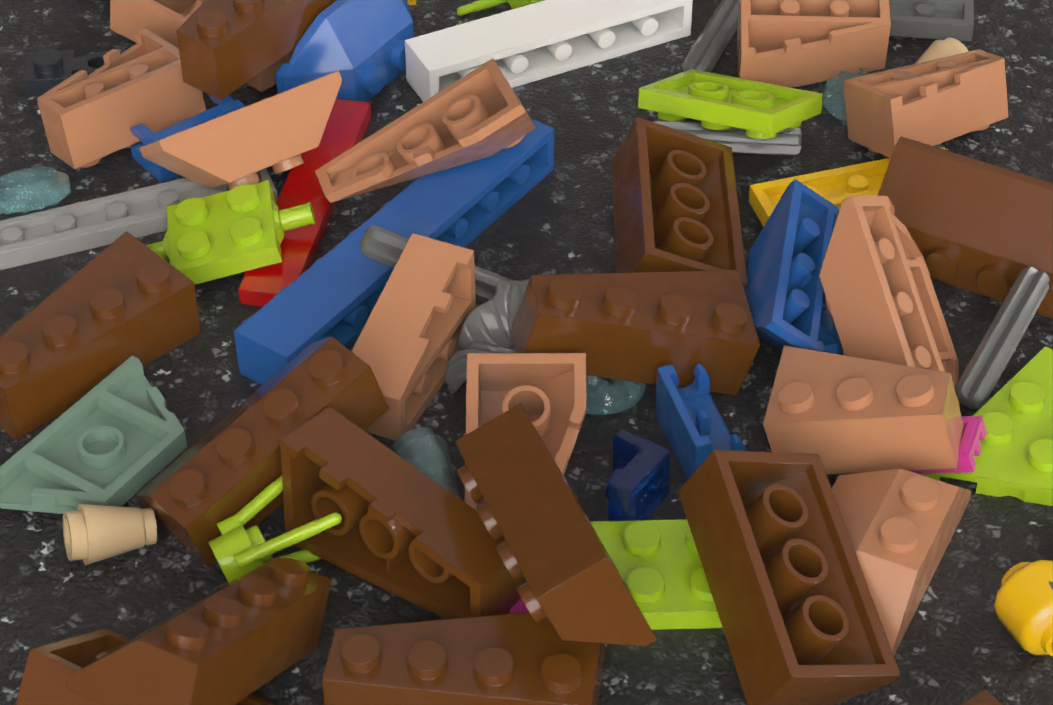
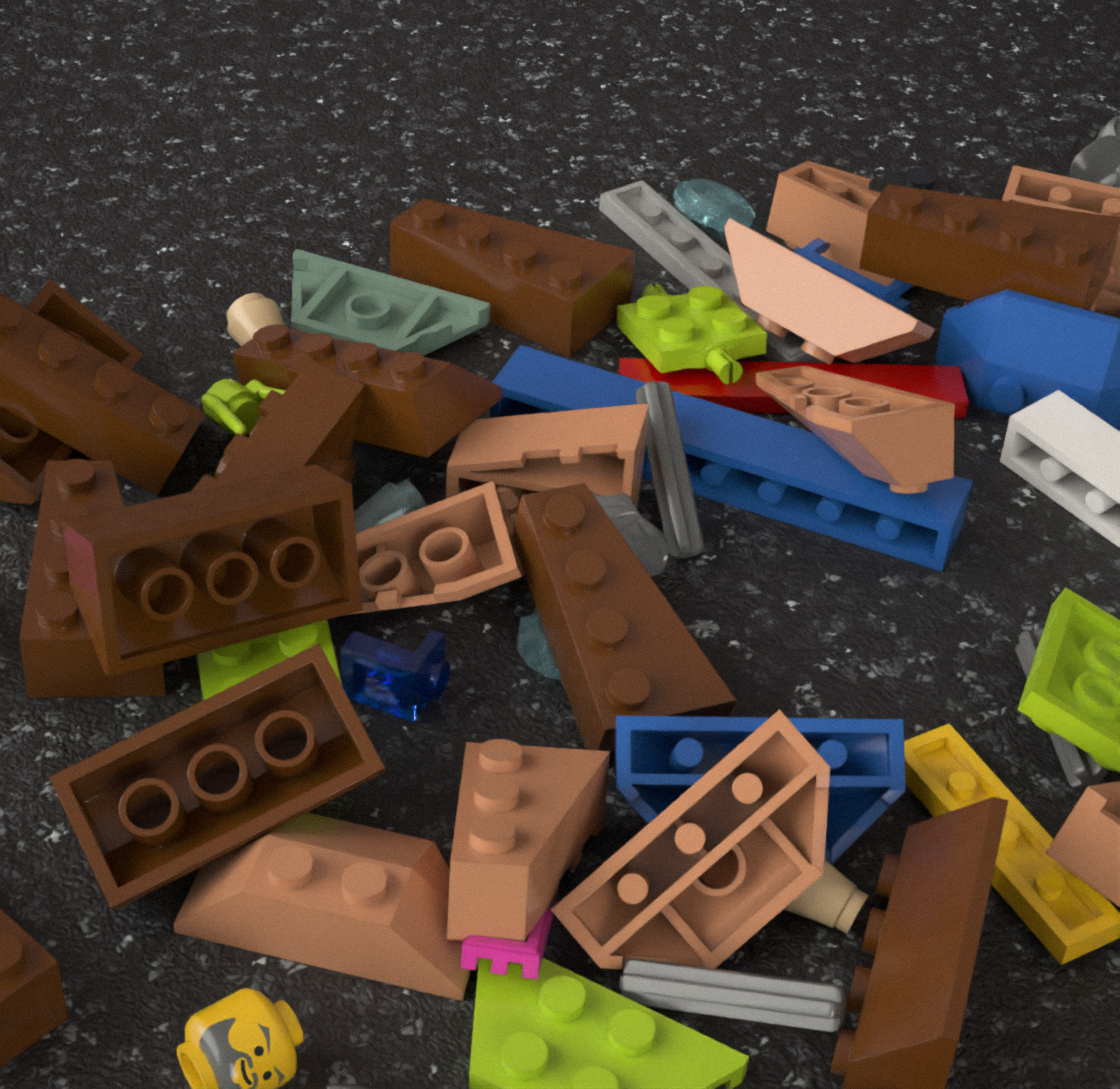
camera: 75 degrees right, 0 degrees up
(675, 203) = (850, 646): reddish brown slope -> none
(691, 419) = (496, 702): blue hinge -> none

